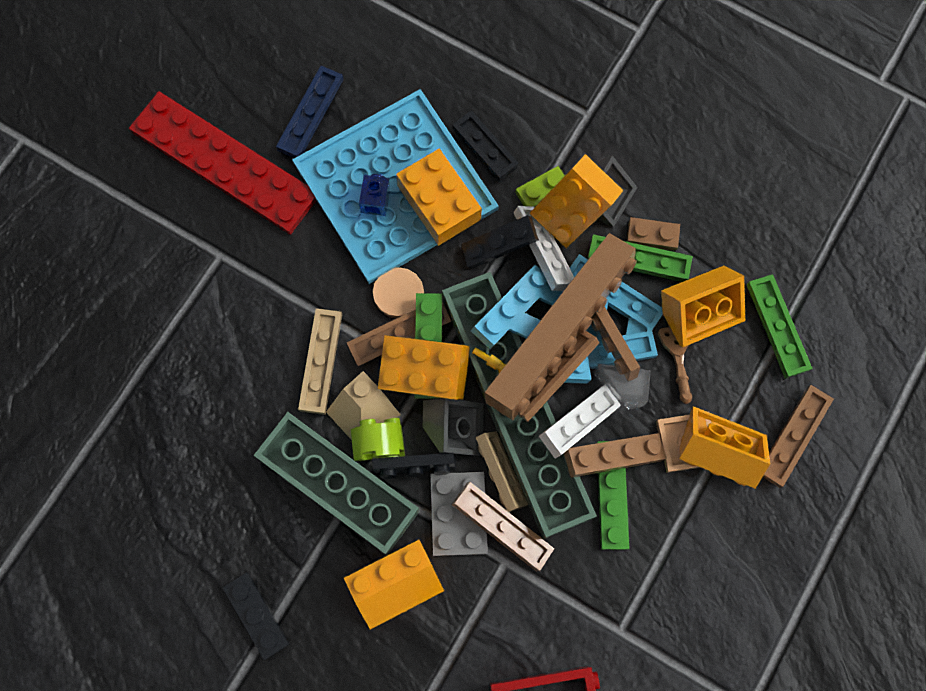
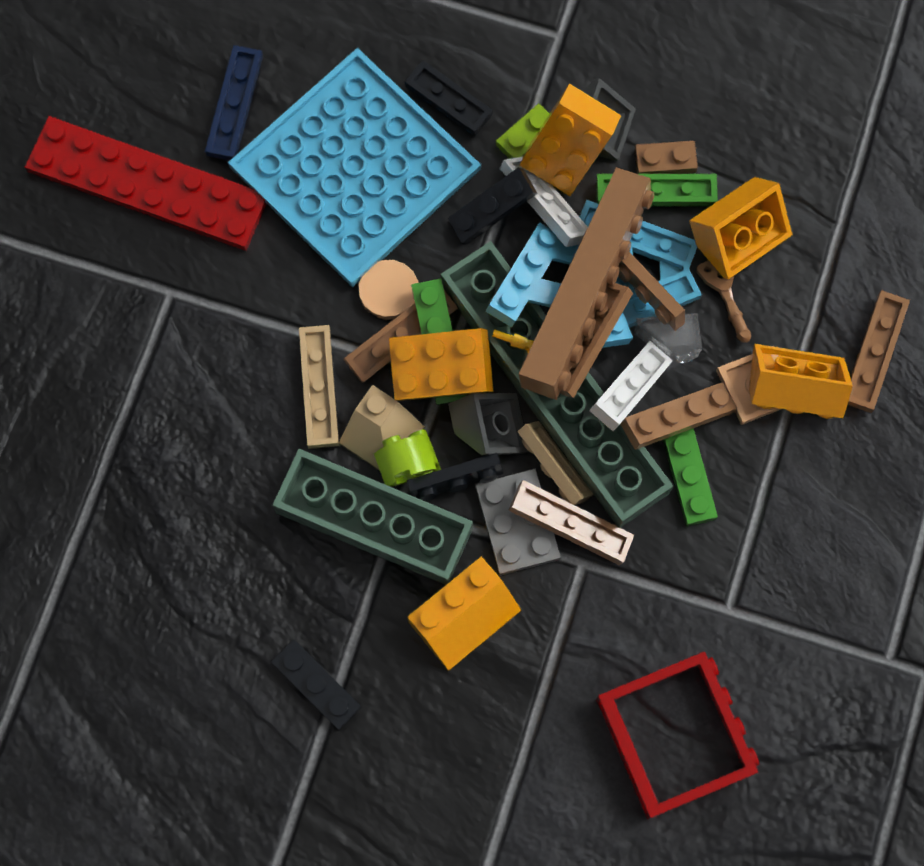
camera: 10 degrees left, 0 degrees up
(374, 194) = (336, 182): clear blue brick -> none
(439, 196) = (410, 168): light orange brick -> none
(779, 326) = (831, 232): bright green plate -> none

